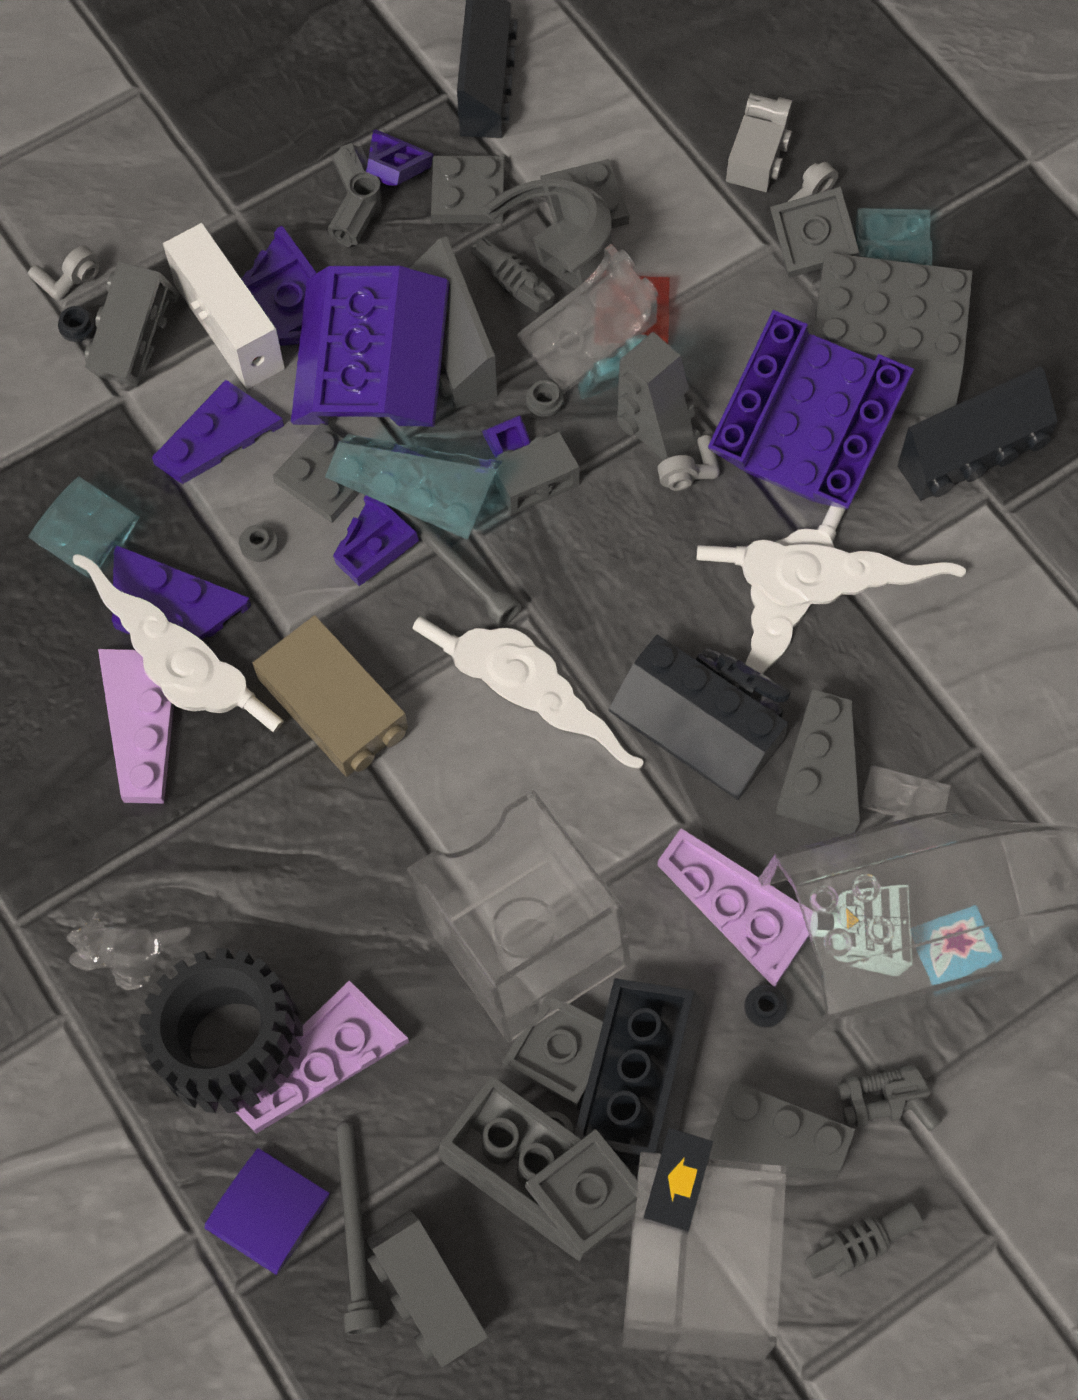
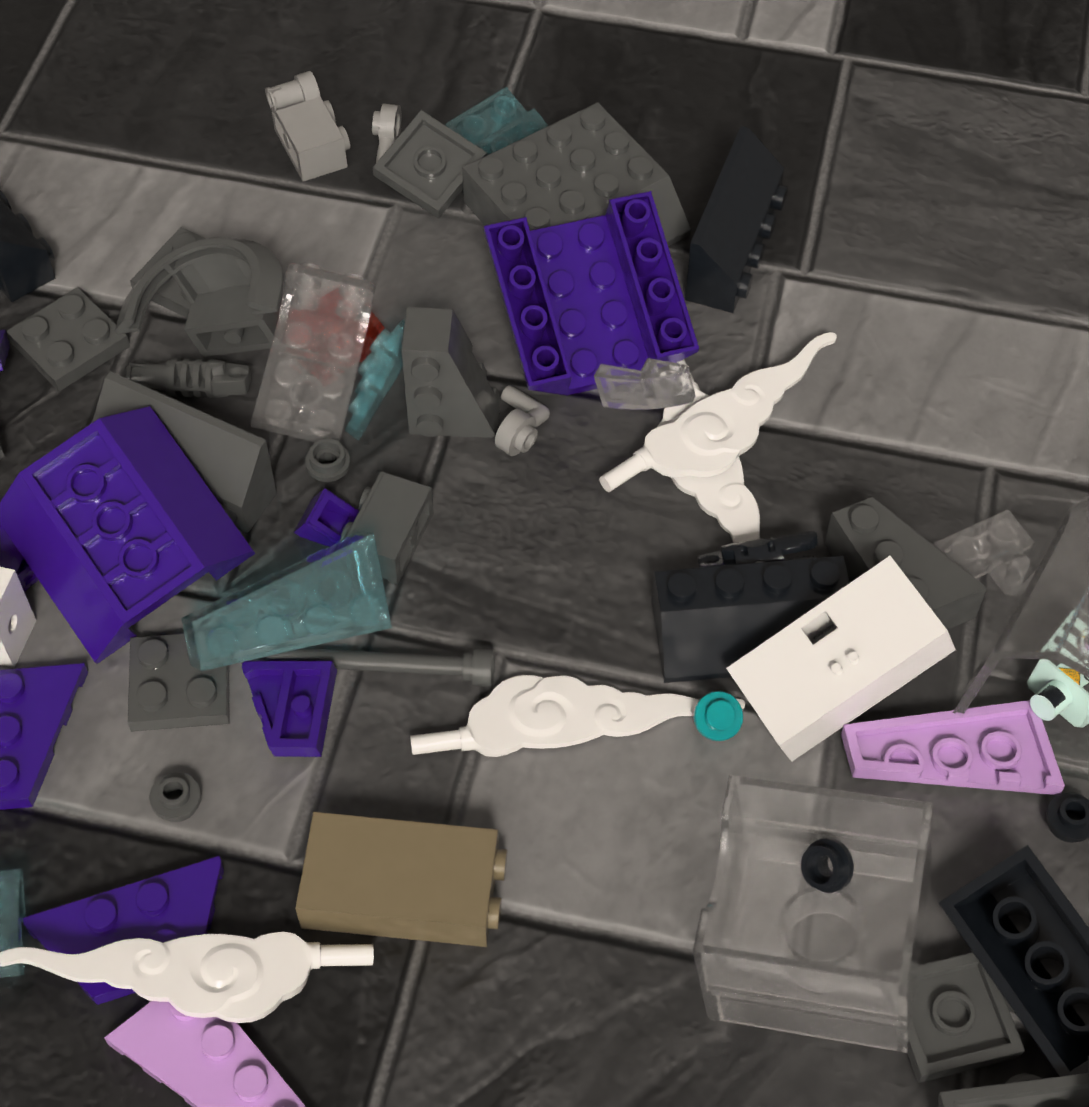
camera: 45 degrees left, 10 degrees down
(555, 894) = (815, 865): none -> black plate
(612, 758) = (718, 716): none -> teal plate
(712, 784) = (841, 658): none -> white brick
(792, 508) = (654, 387): none -> clear slope

